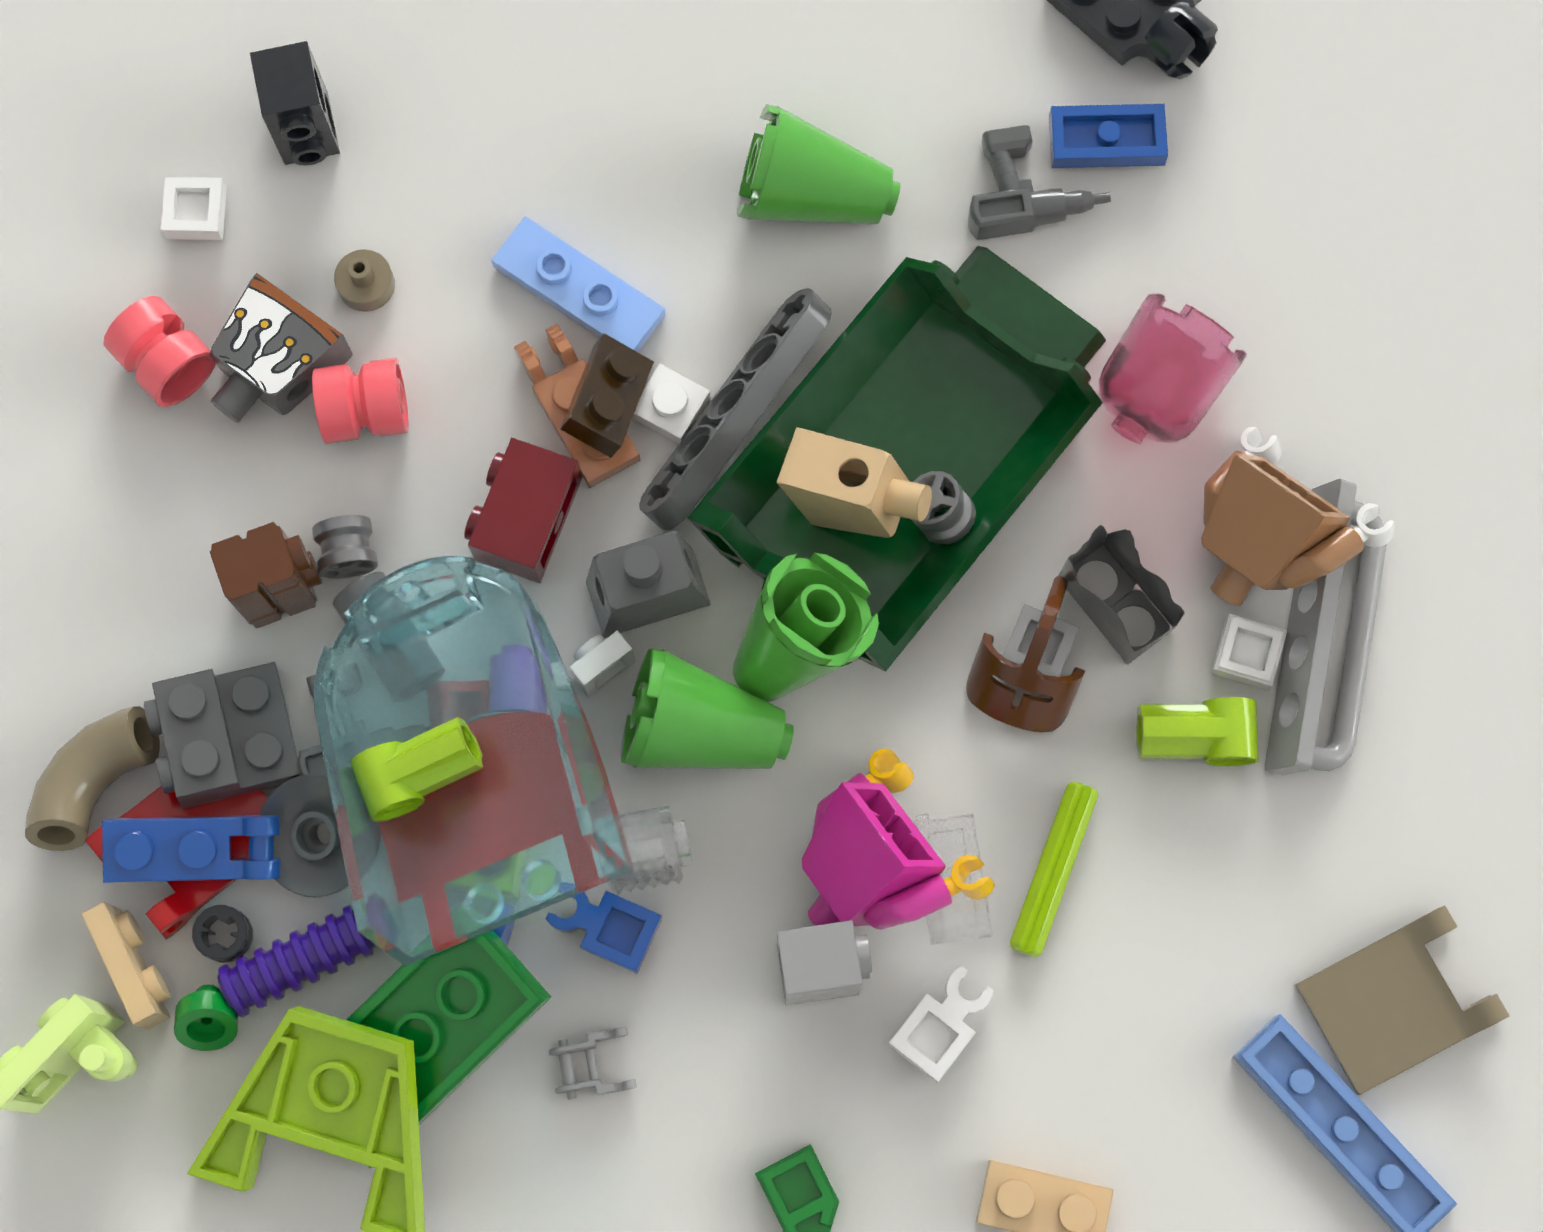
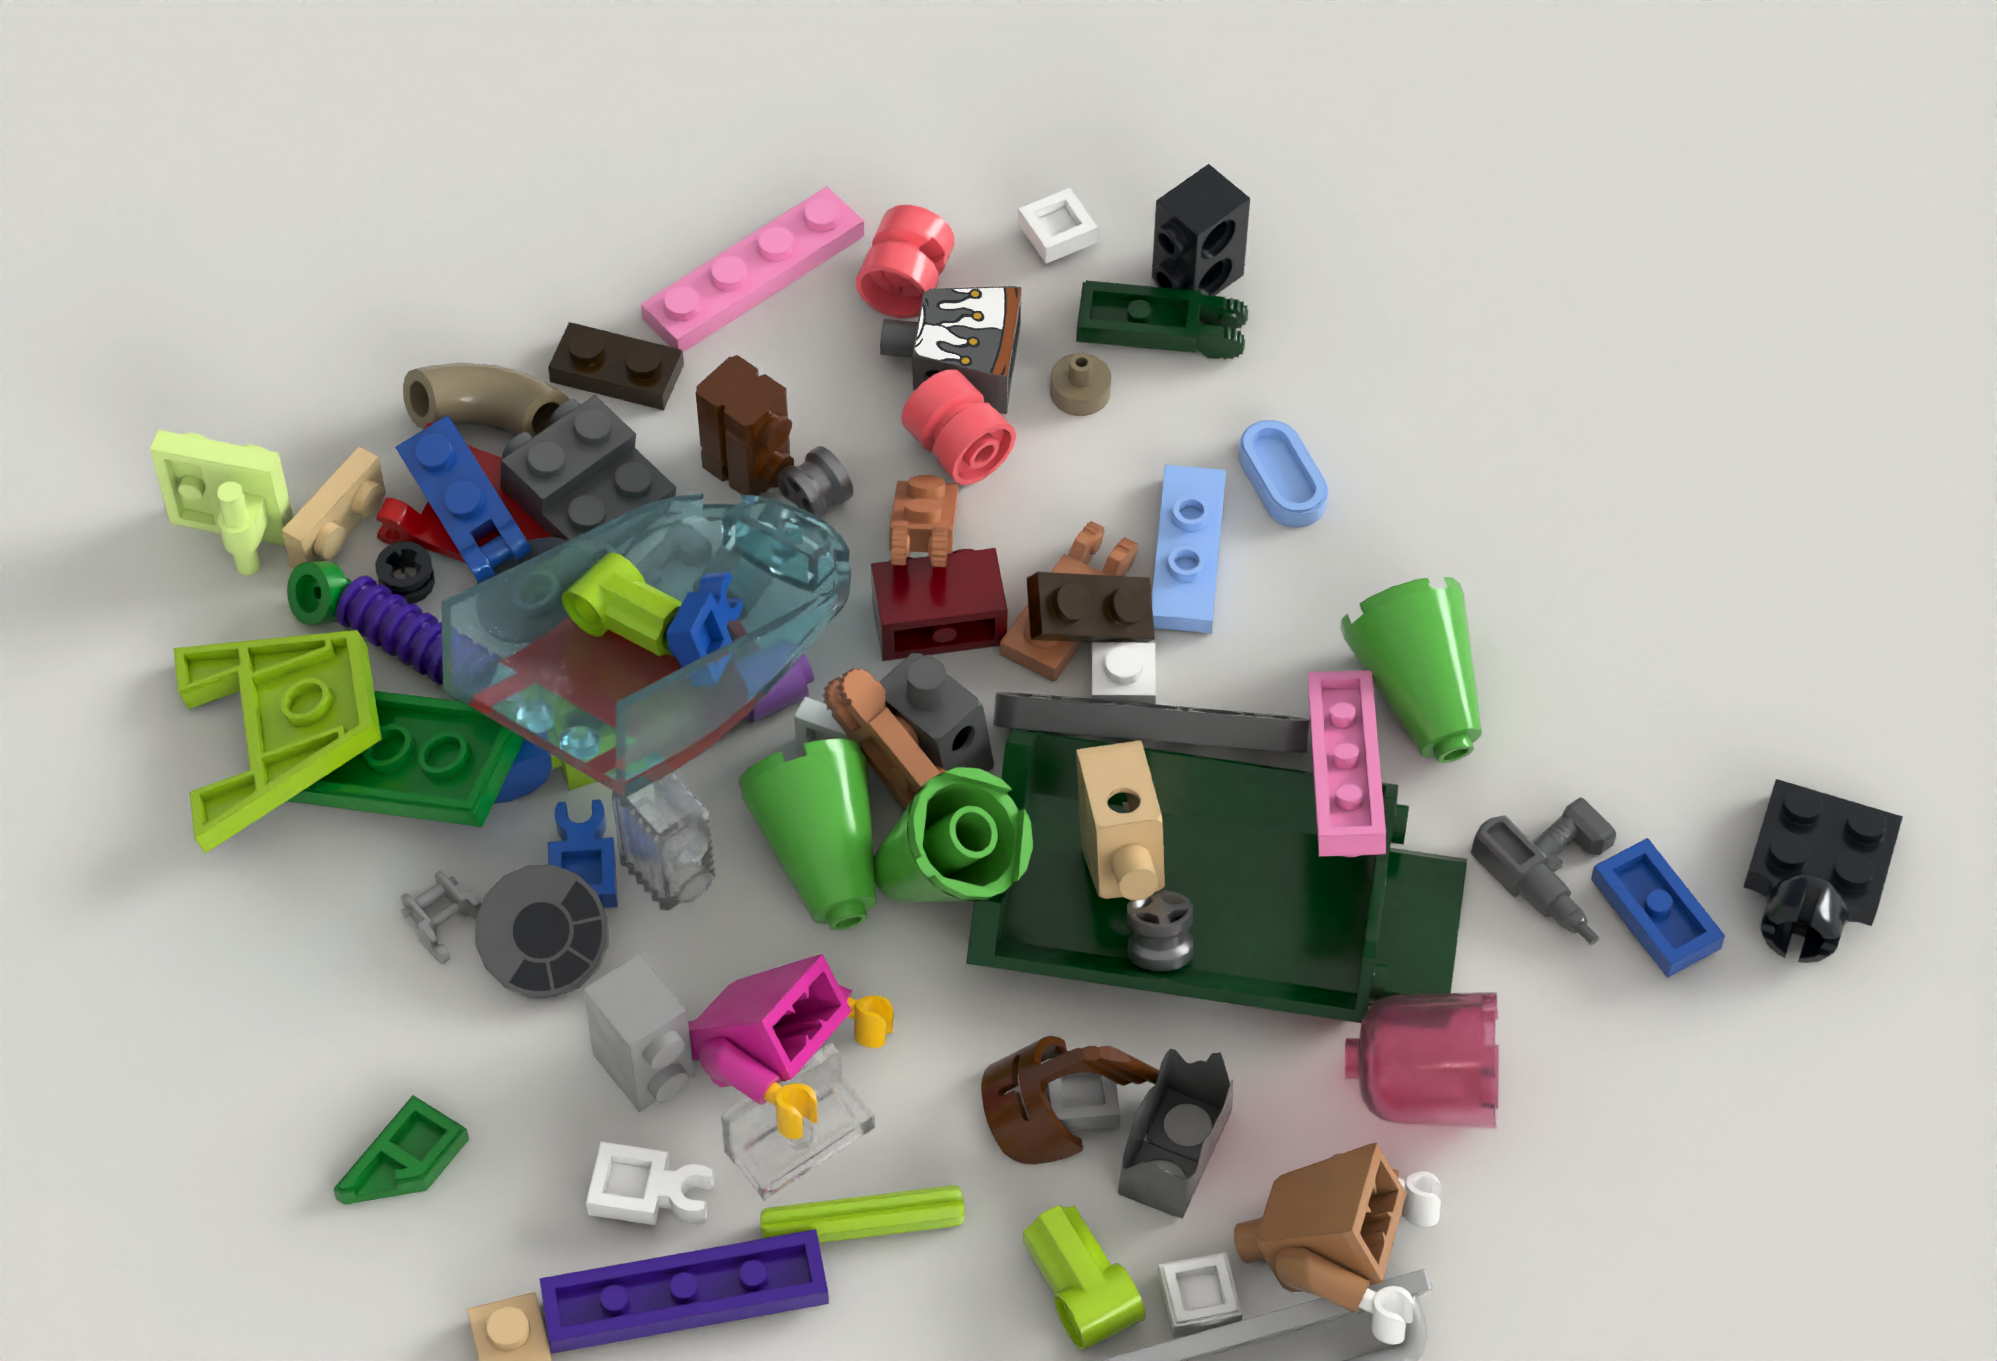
camera: 60 degrees right, 20 degrees down
(76, 480) = (752, 270): none -> bright pink plate
(108, 647) = (616, 366): none -> dark brown plate
(339, 184) = (1161, 319): none -> dark green hinge
(445, 480) = (923, 519): none -> nougat hinge
(489, 722) = (703, 619): none -> blue plate
(548, 174) = (1283, 473): none -> light blue tile
(663, 625) = (884, 738): none -> nougat hinge
(664, 993) = (541, 931): none -> tile
(883, 284) = (1346, 764): none -> bright pink plate
(1051, 1042) = (684, 1291): none -> dark purple plate

